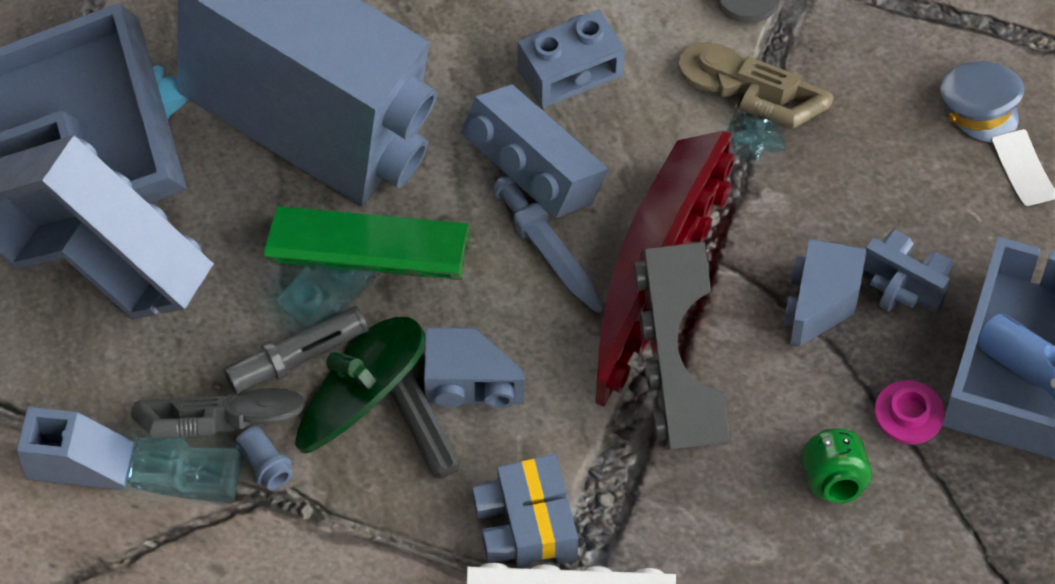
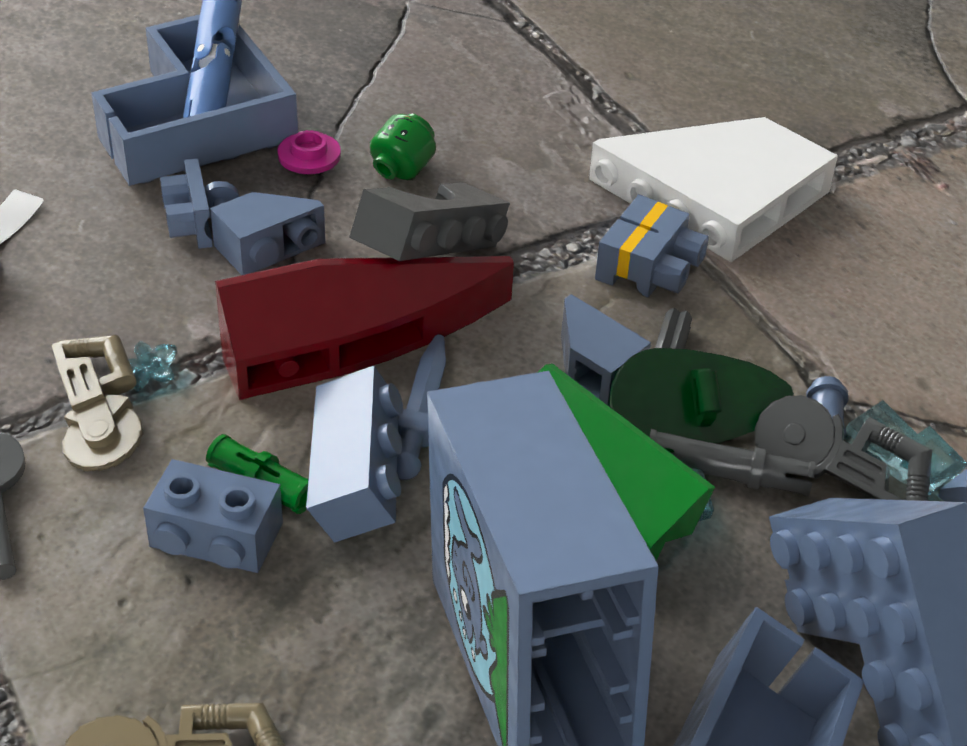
camera: 140 degrees left, 15 degrees down
(588, 108) = (236, 458): none -> green pin

